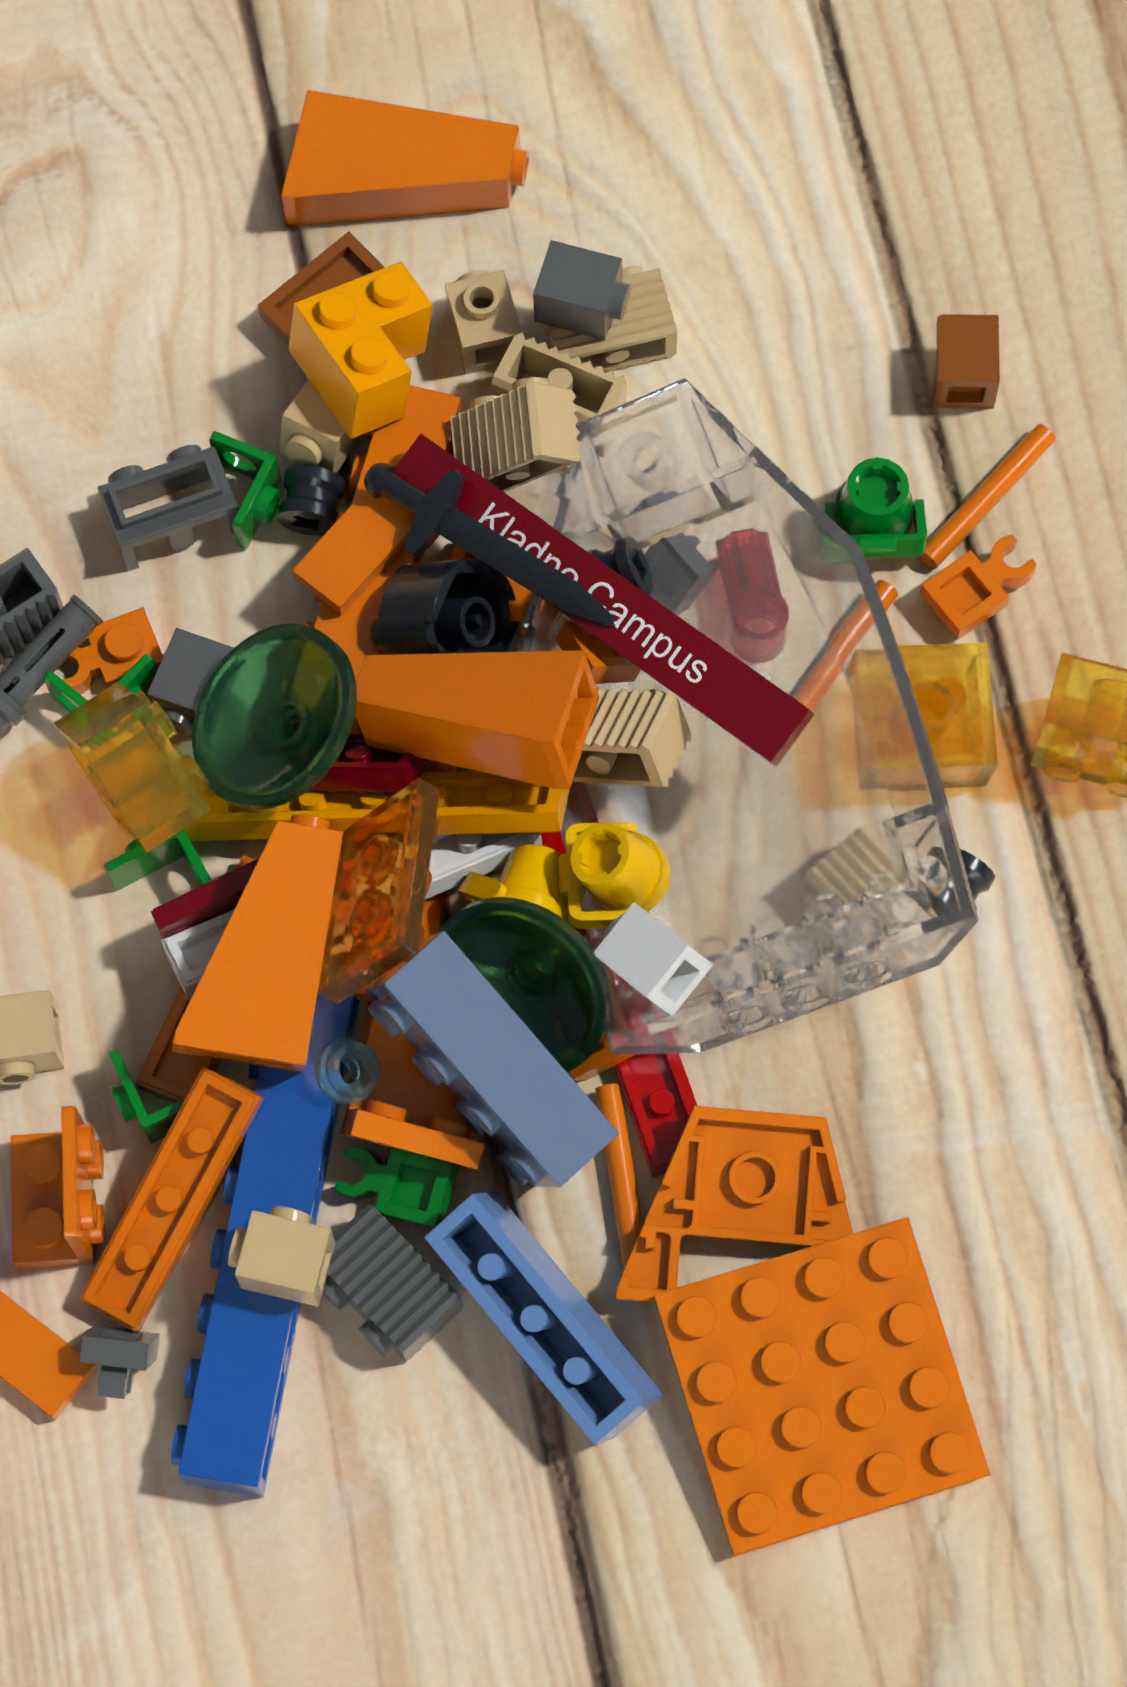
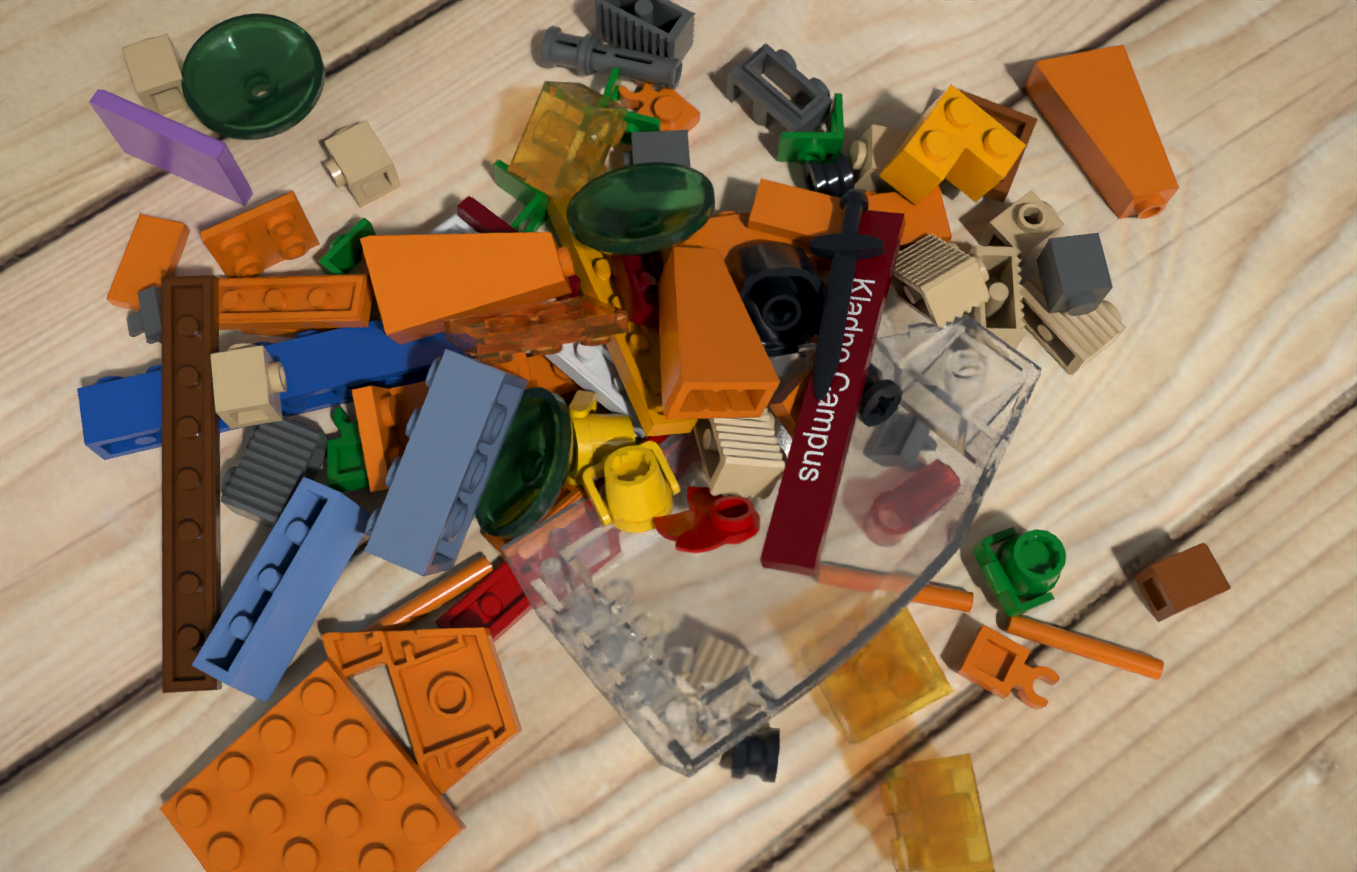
camera: 60 degrees right, 0 degrees up
(360, 1376) = (189, 479): none -> reddish brown tile
(362, 1068) = (400, 385): clear light blue plate -> none
(652, 958) = (569, 542): white brick -> none
(696, 804) = (709, 522): none -> red plate

